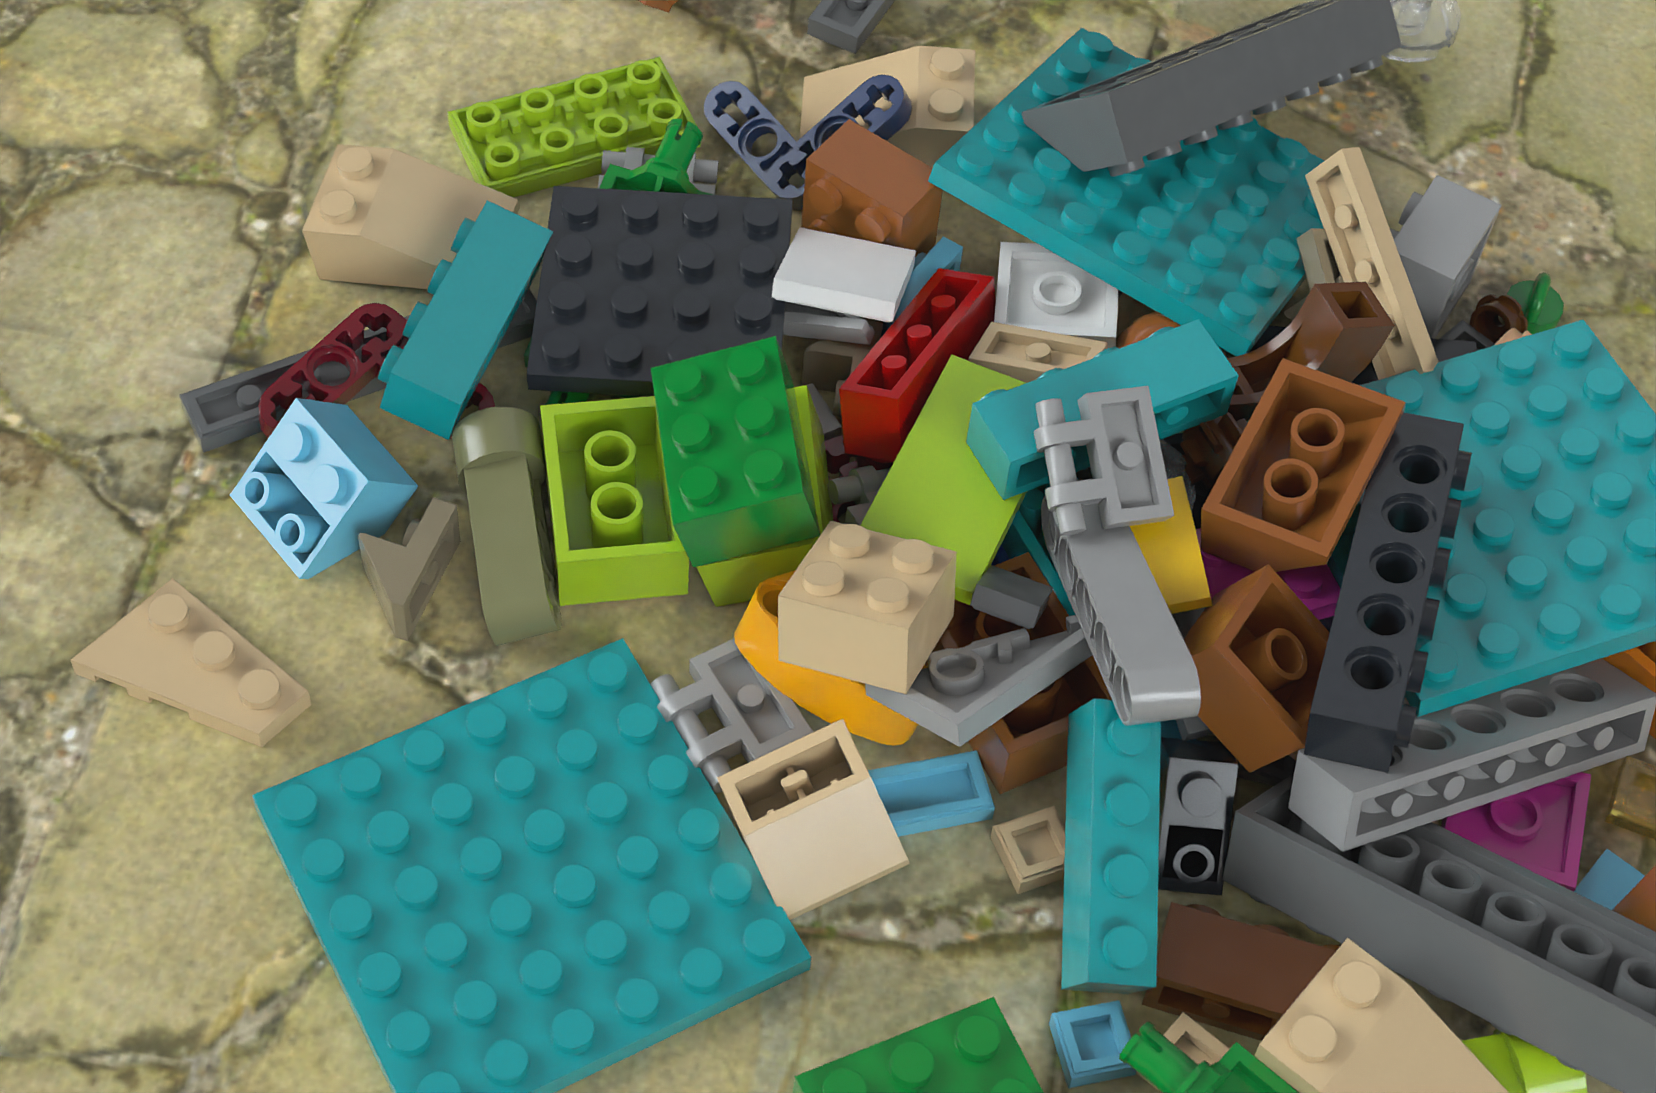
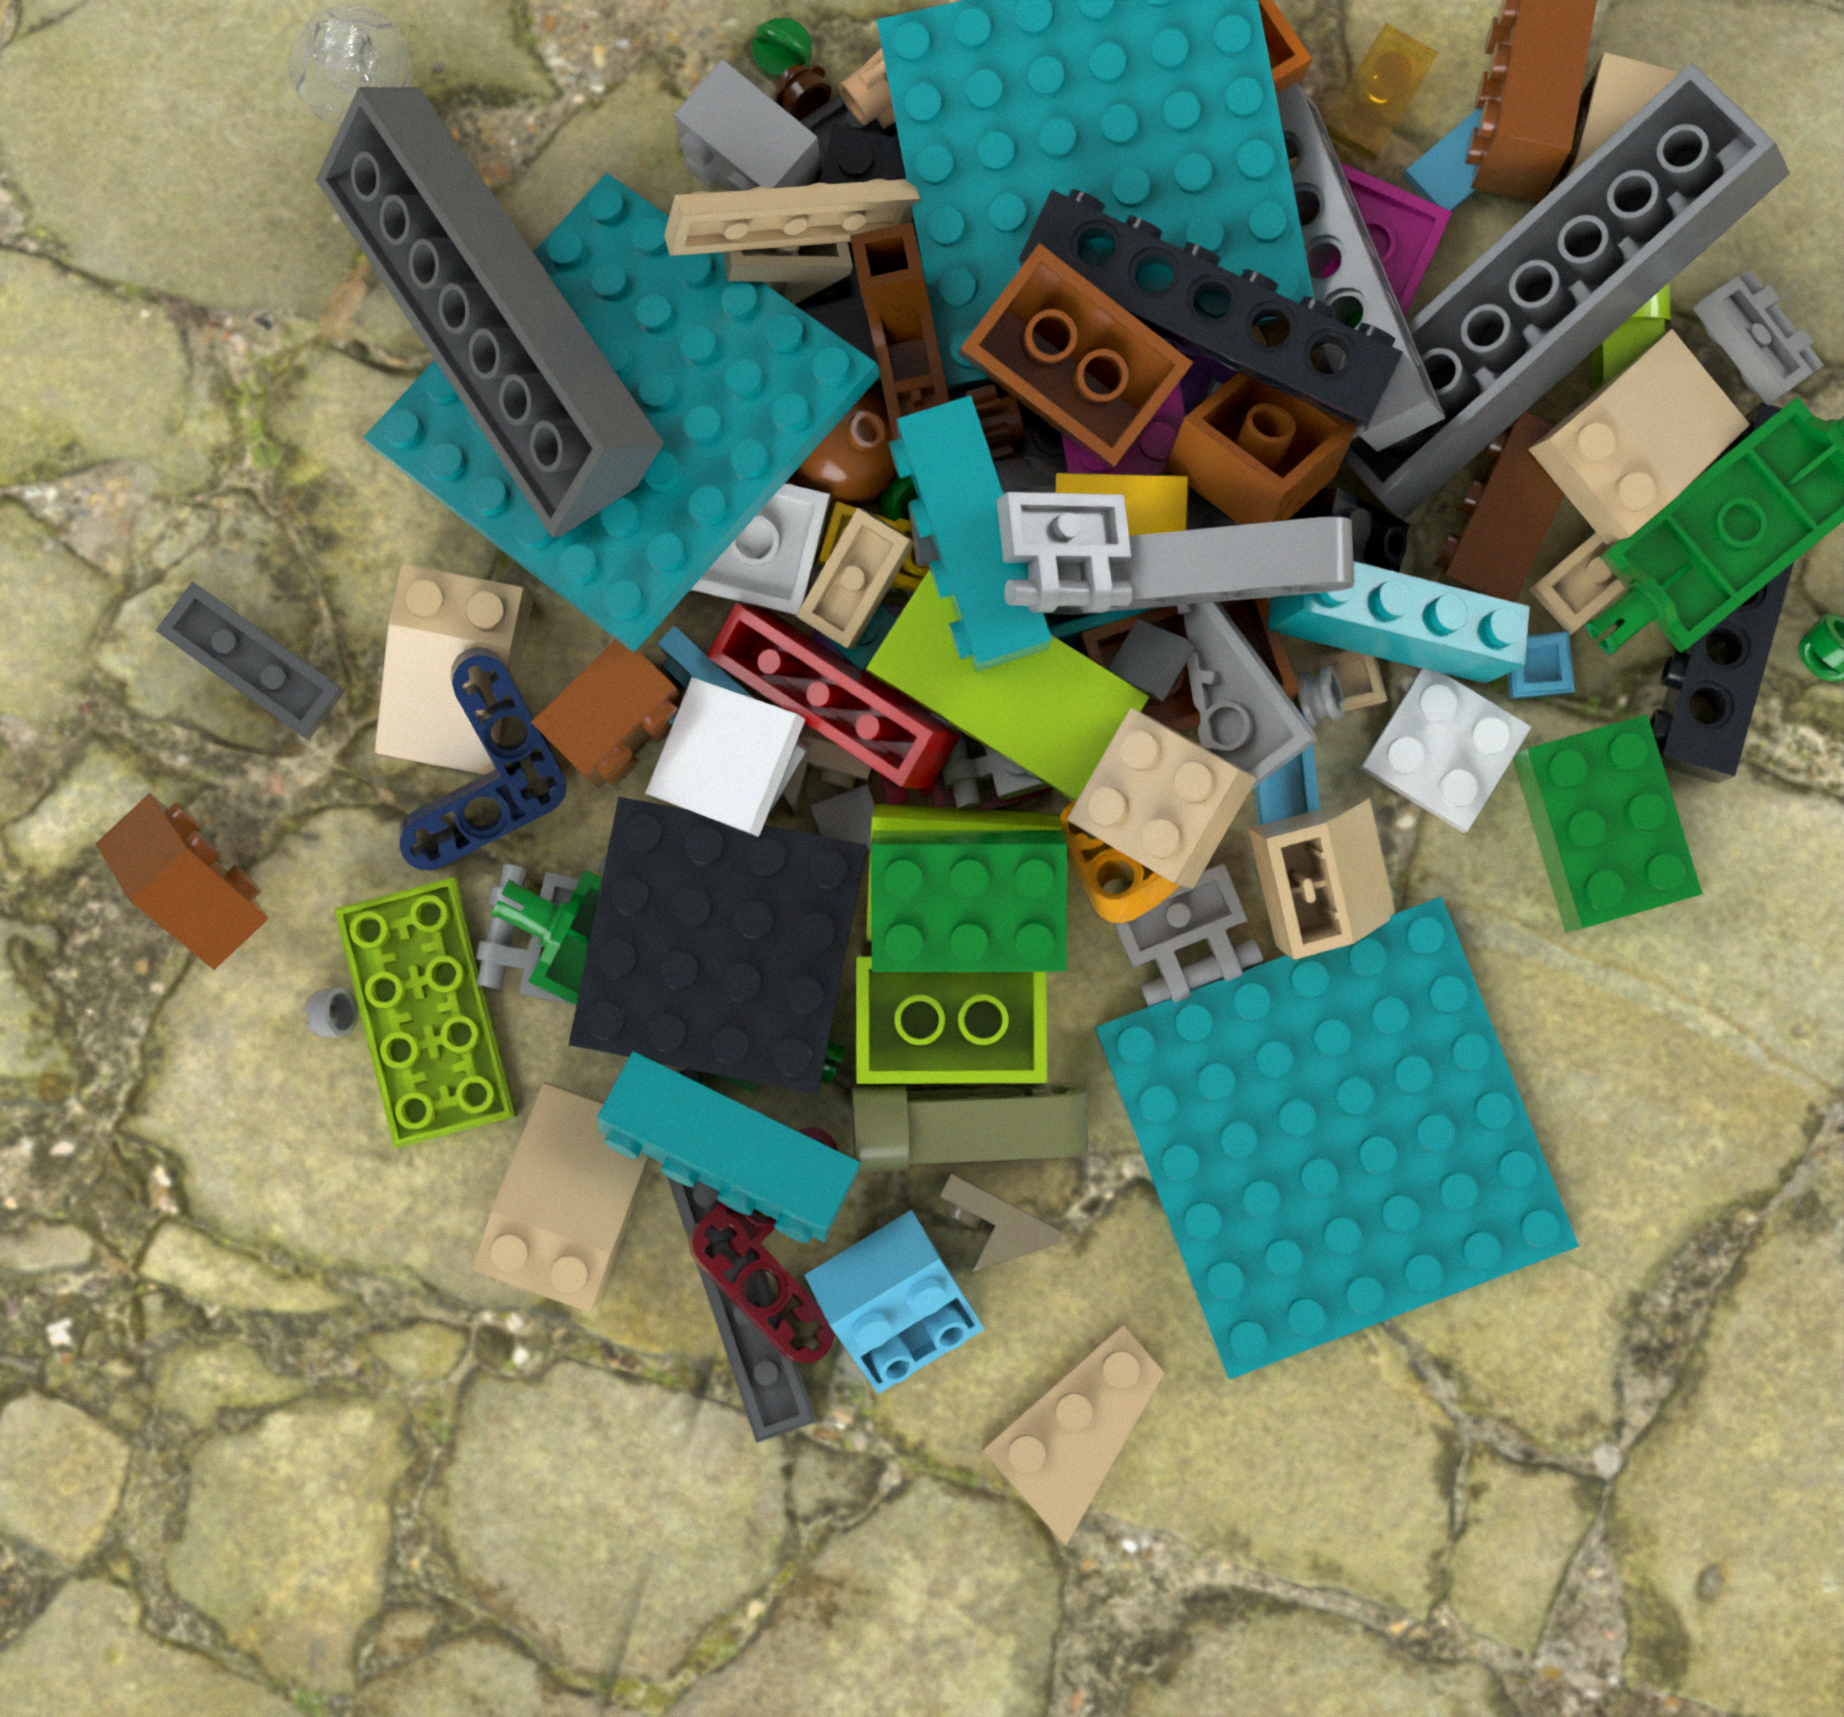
camera: 75 degrees left, 30 degrees up
(578, 56) = (344, 1012): none -> light grey hinge
(978, 946) = (1445, 748): none -> white plate
(1002, 784) = (1320, 695): none -> light grey bush

